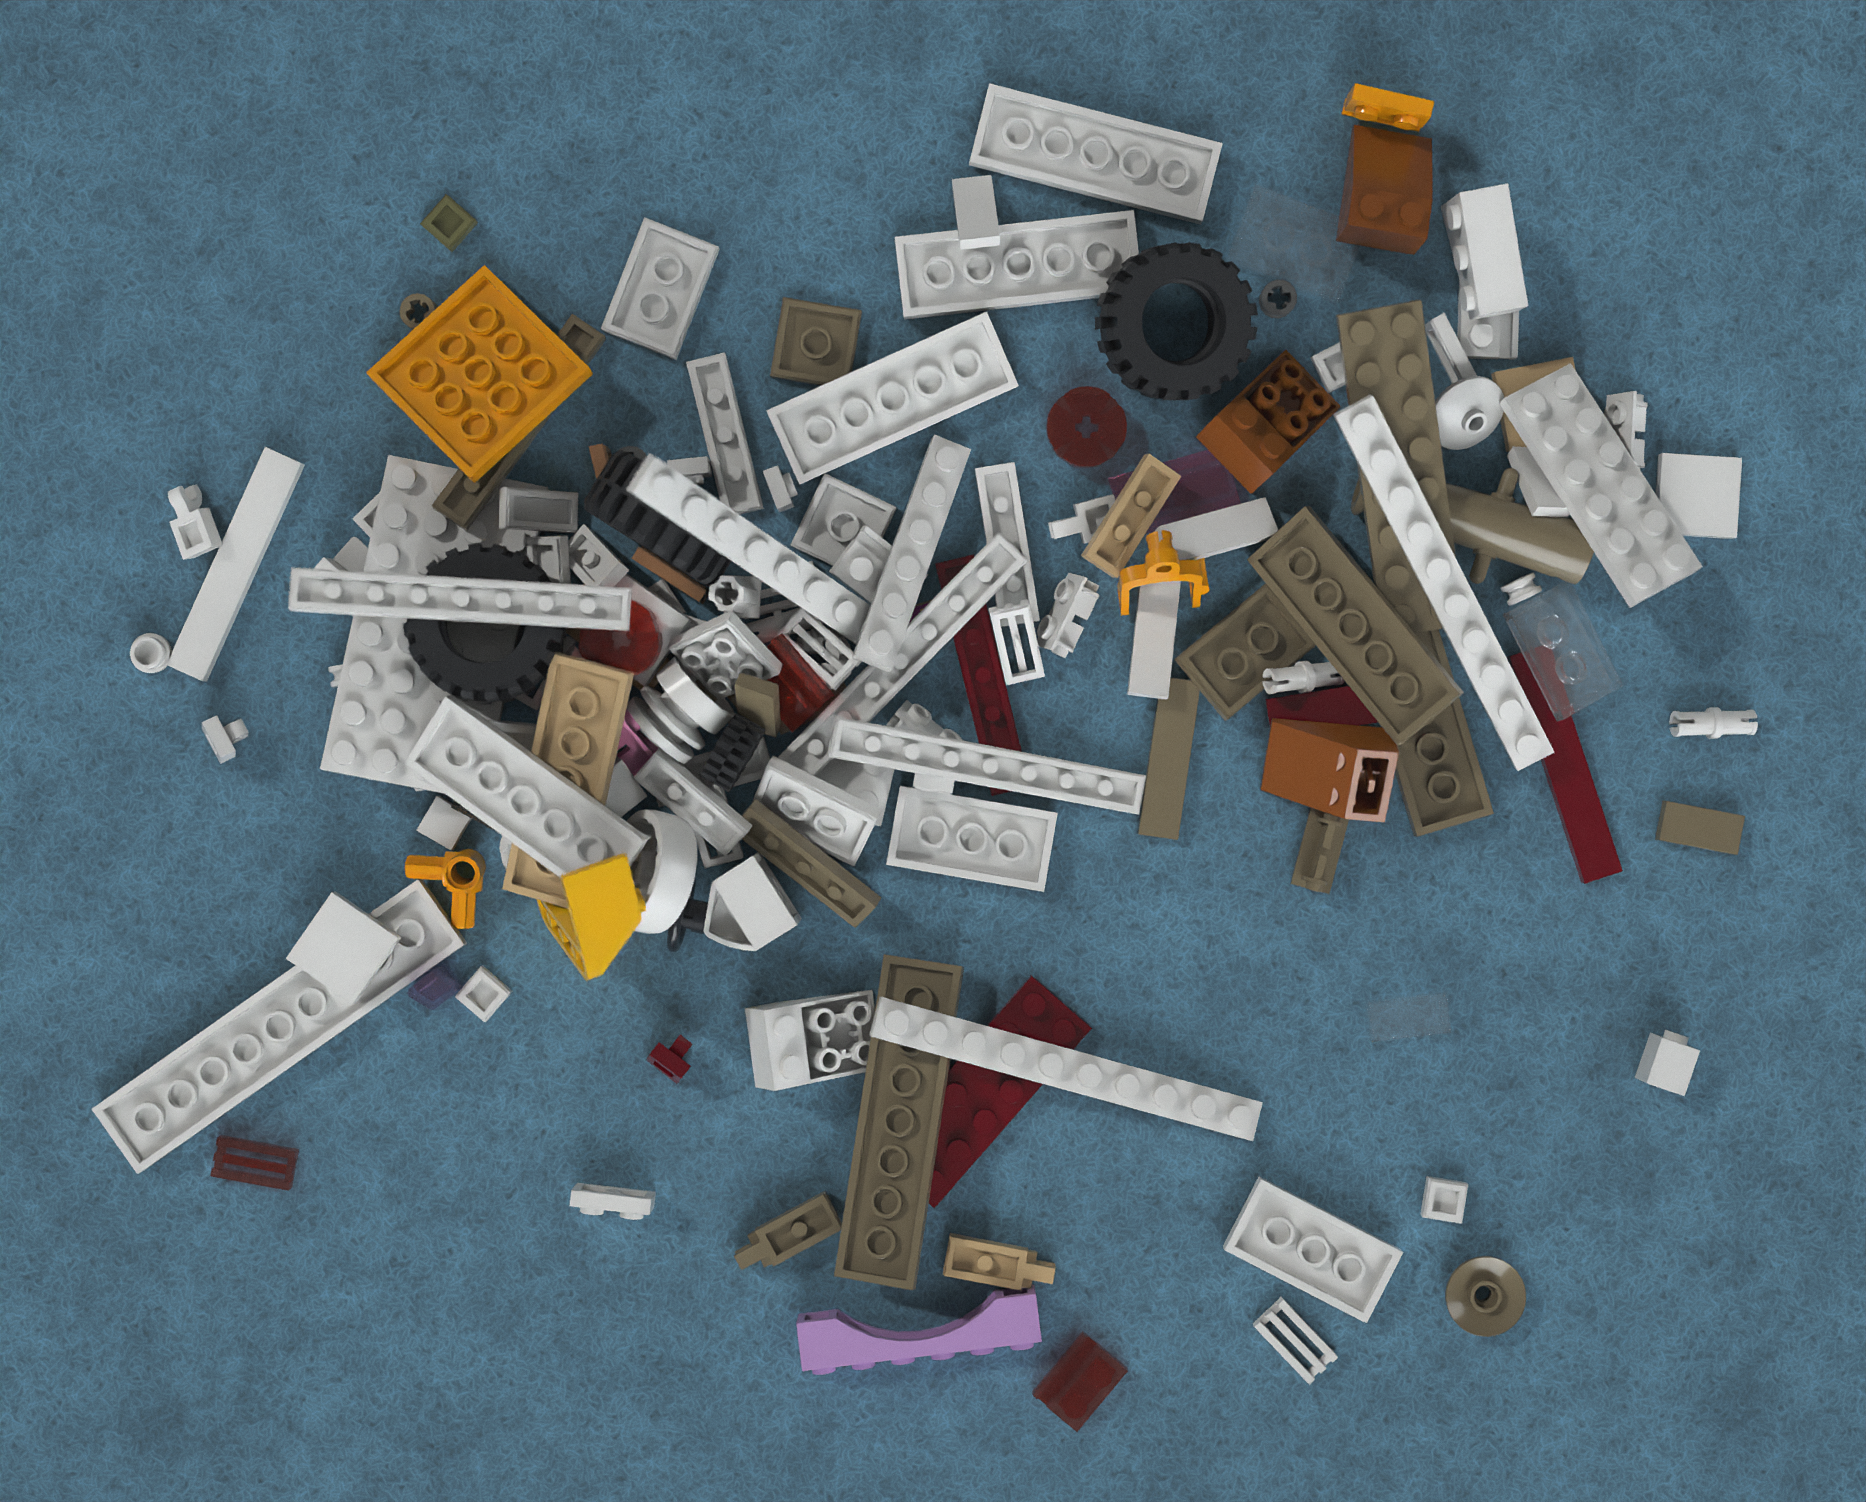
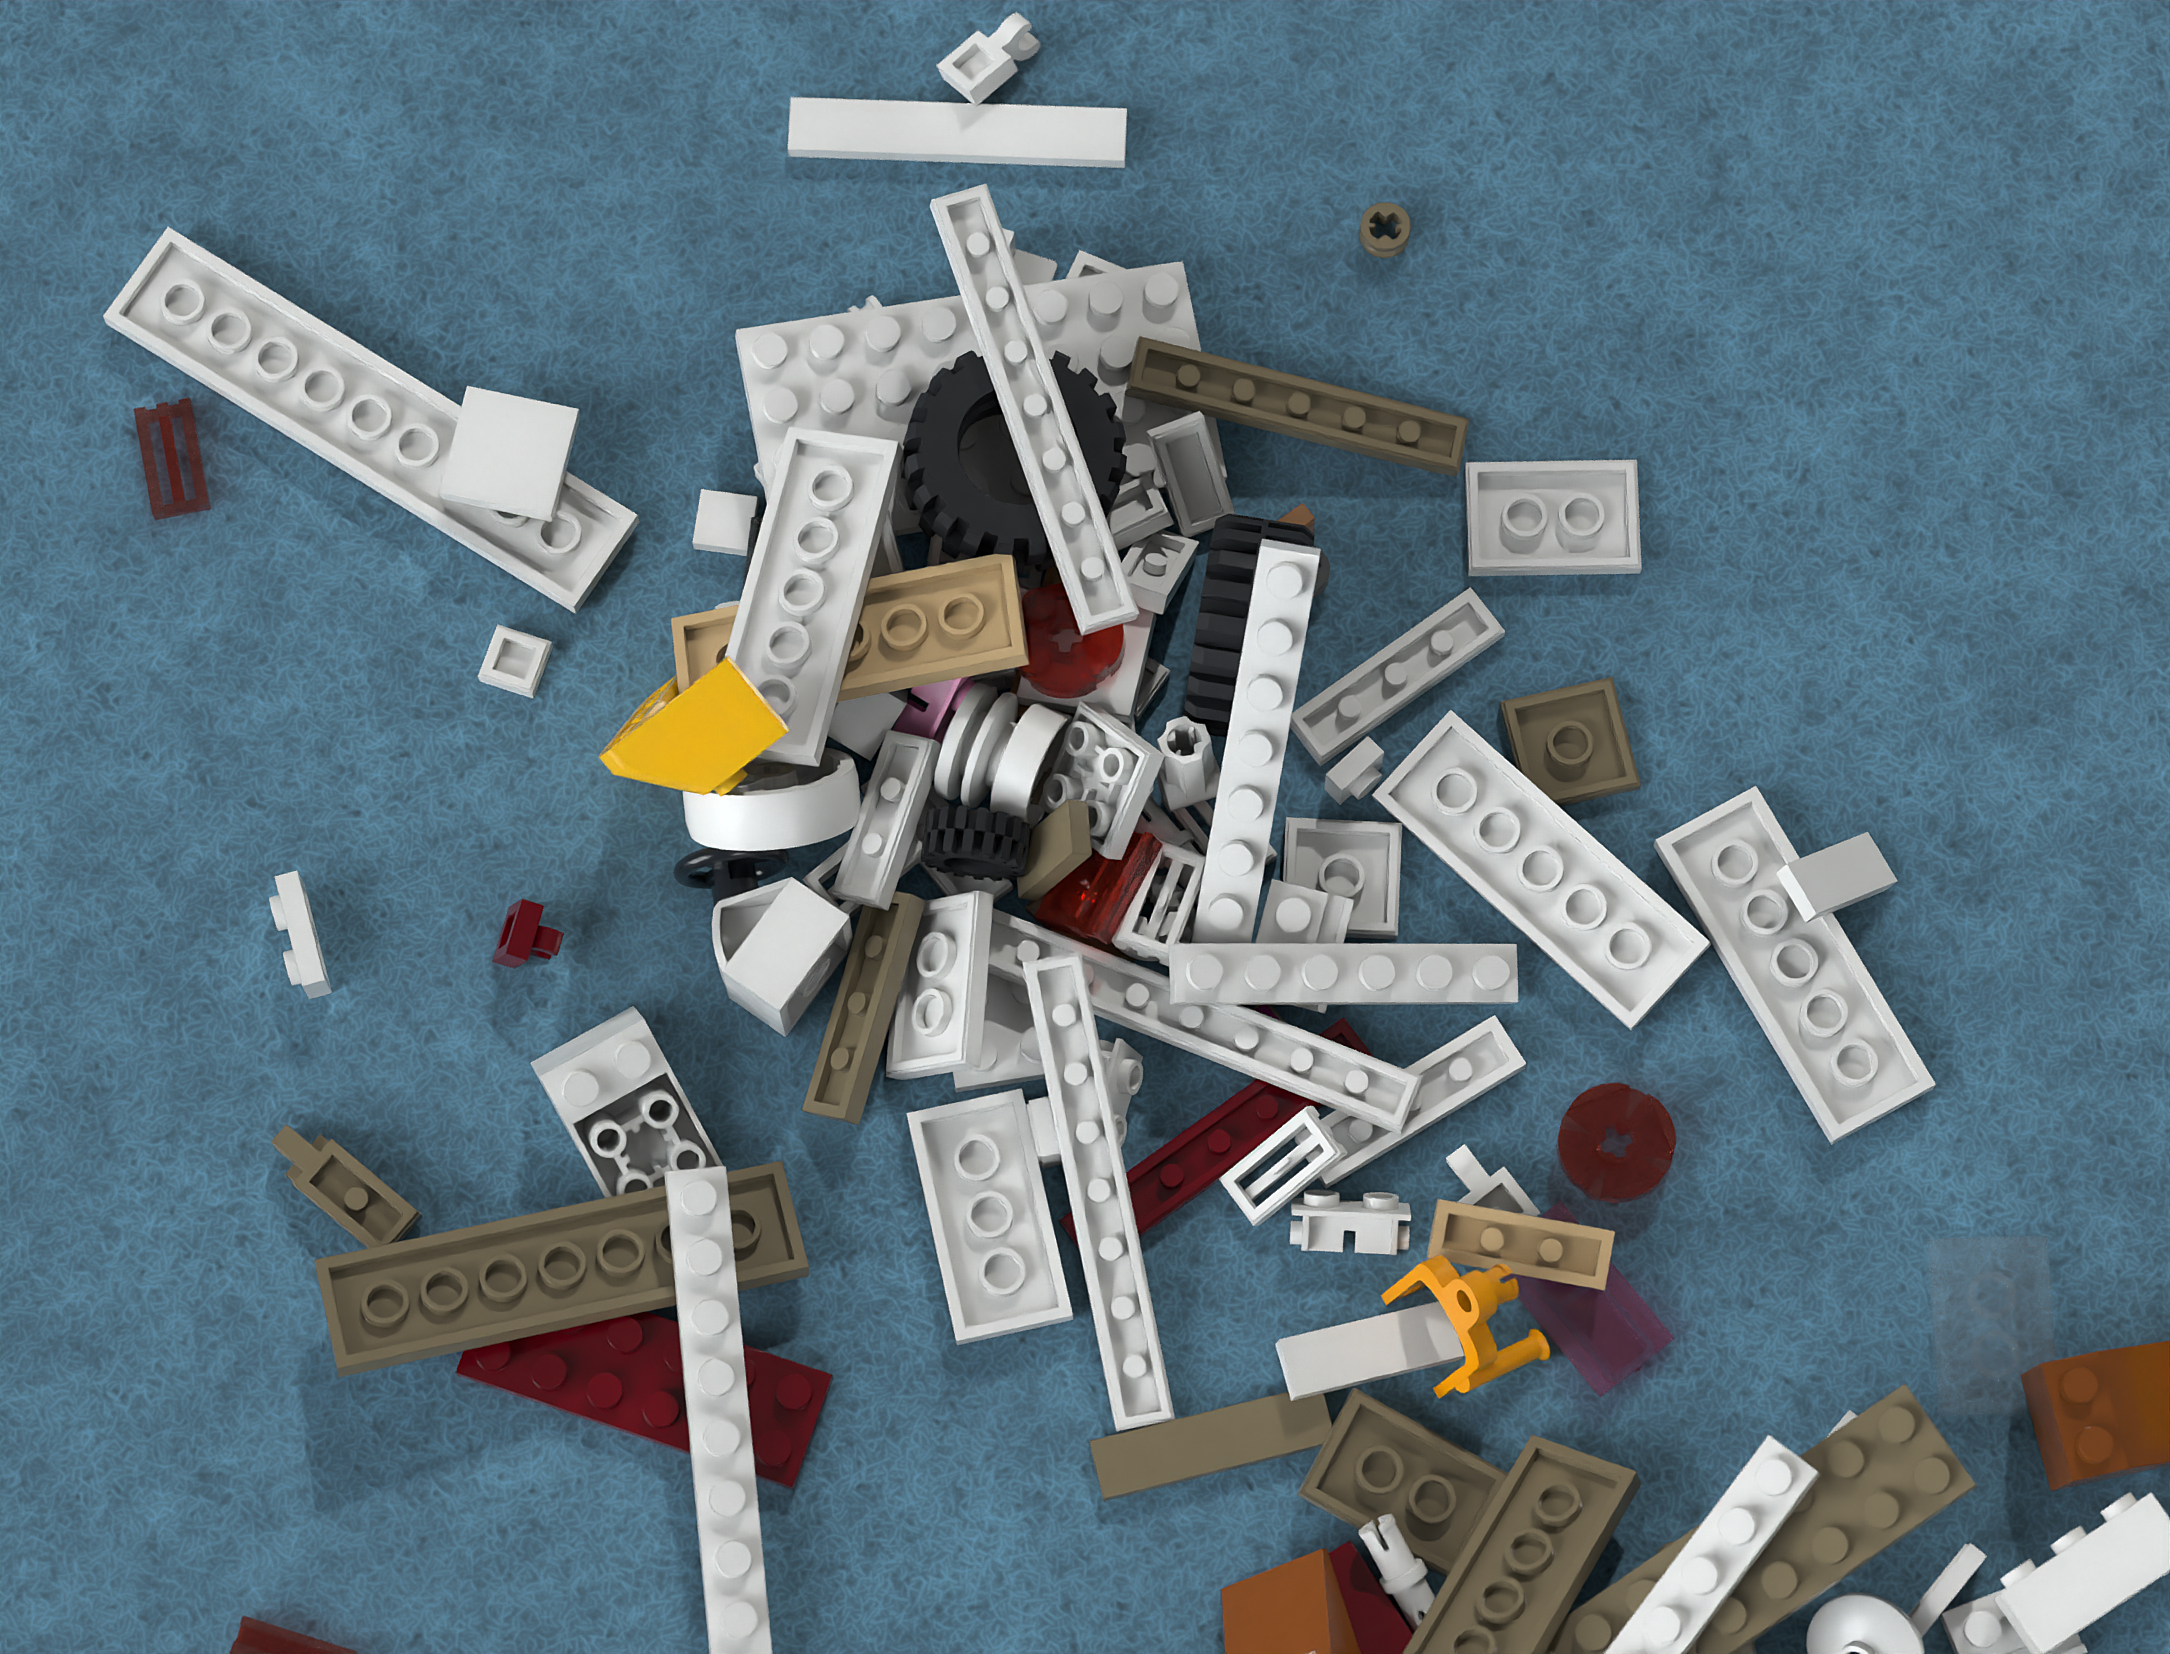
camera: 70 degrees right, 15 degrees down
(150, 653) = (797, 72): white plate -> none
(222, 737) = (725, 203): white tile -> none
(435, 987) = (500, 593): clear purple slope -> none
(449, 223) = (1518, 222): olive tile -> none
(462, 889) = (663, 546): light orange axle -> none
(479, 373) = (1337, 330): light orange plate -> none
(671, 574) = (1178, 673): medium nougat tile -> none
(693, 468) = (1328, 646): white plate -> none
(837, 1340) = (224, 1312): lavender arch -> none
(995, 1263) = (410, 1486): tan hinge -> none
(1095, 154) = (1988, 1007): white plate -> none
(1221, 530) = (1553, 1375): white tile -> none
(1227, 321) = (1888, 1175): black tyre -> none
(1268, 421) = (1730, 1380): dark orange slope -> none
(1285, 289) = (1889, 1325): dark grey bush -> none

